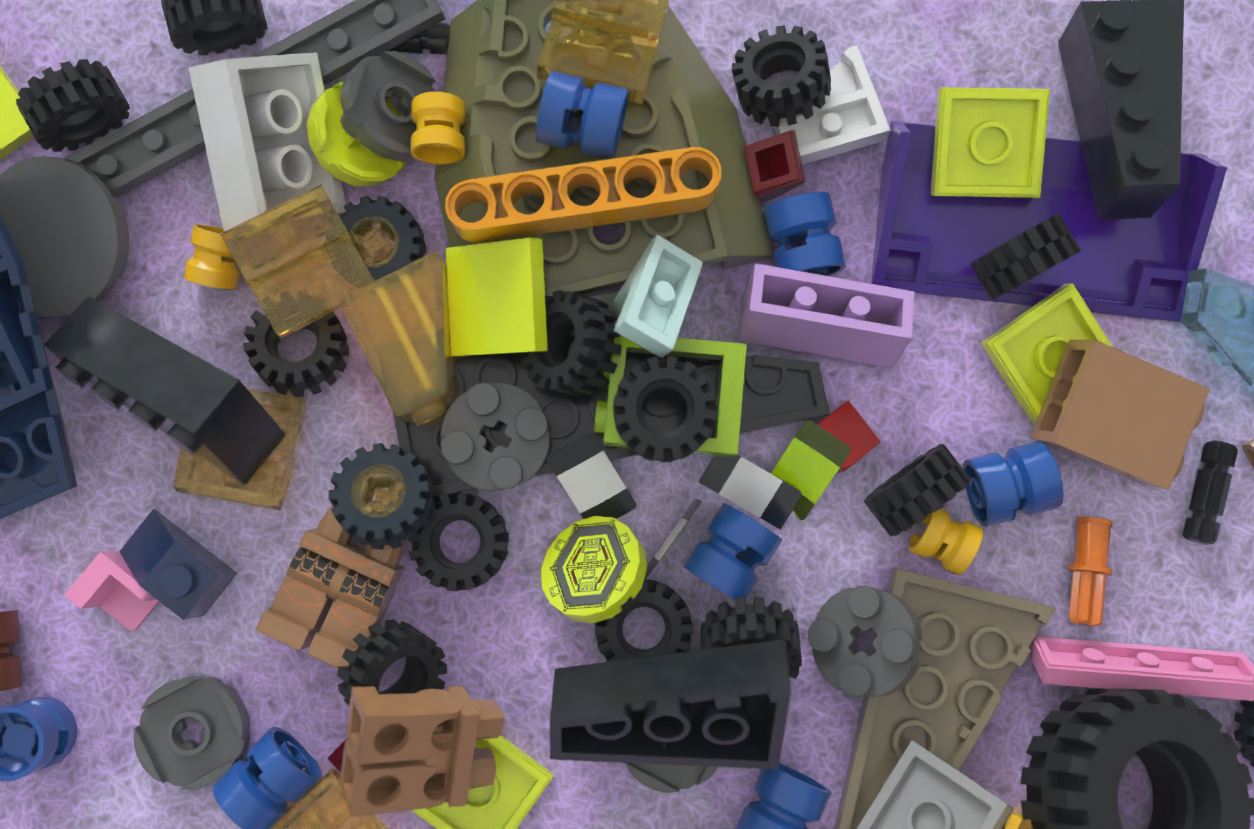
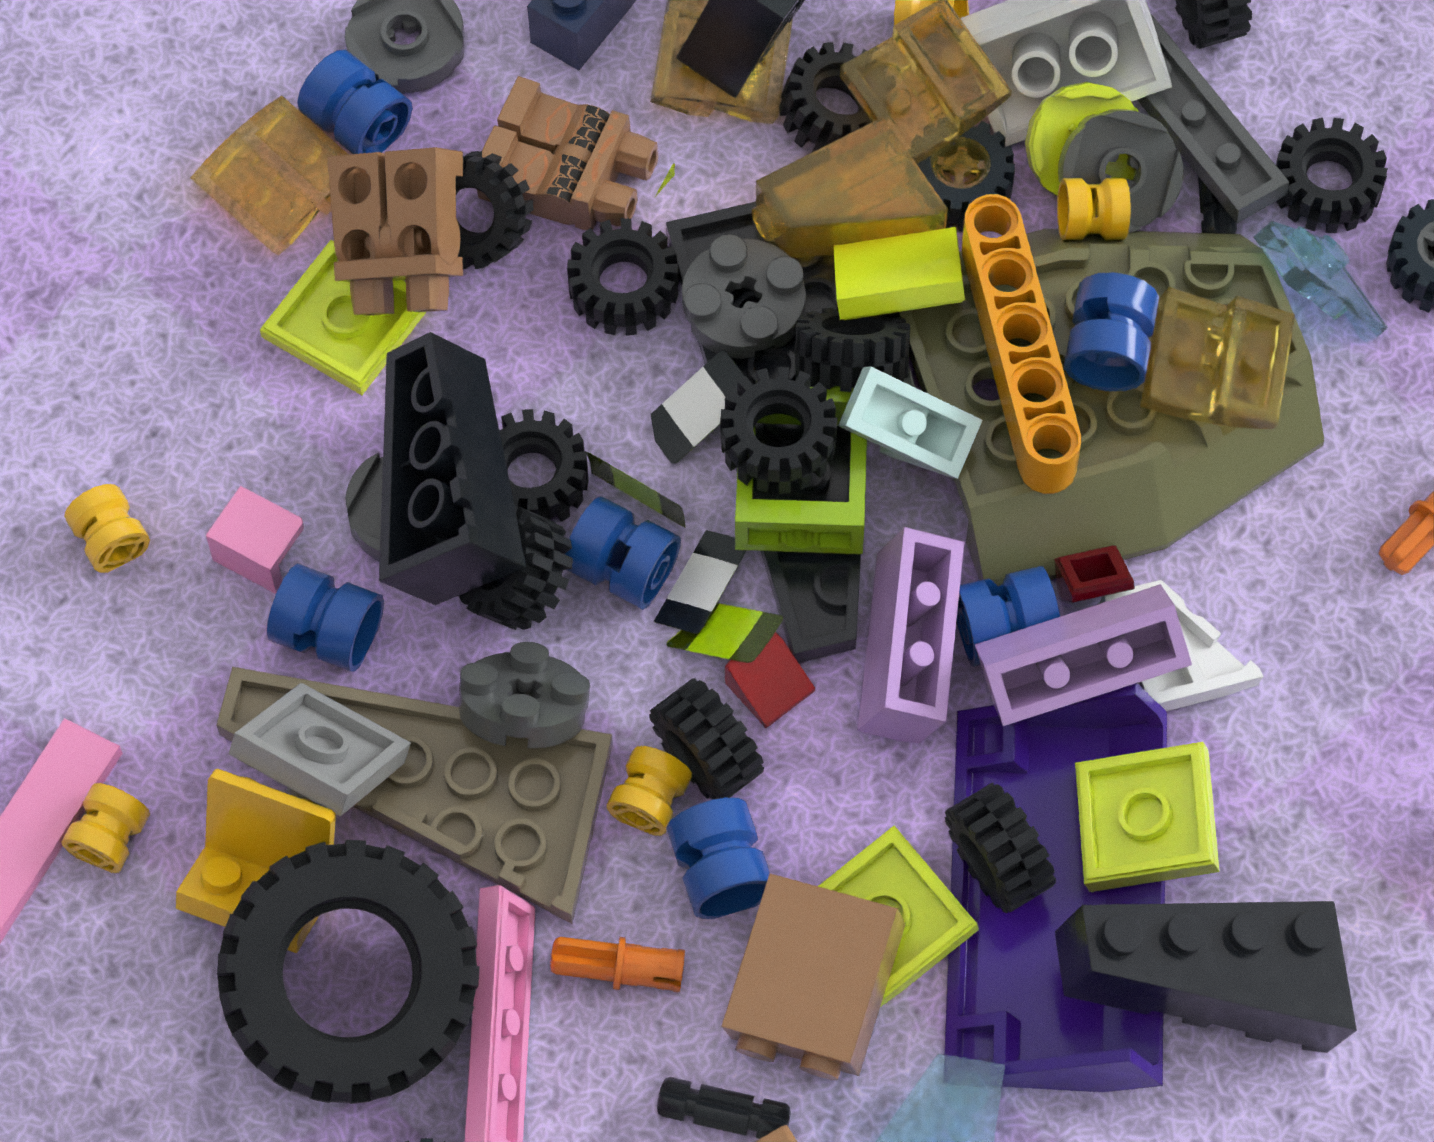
camera: 90 degrees right, 20 degrees down
(396, 511) = (669, 204): black wheel -> none
(593, 569) = (598, 407): neon yellow tile -> none
(778, 54) = (1235, 578): black tyre -> none
(867, 172) = (1083, 654): none -> lavender brick

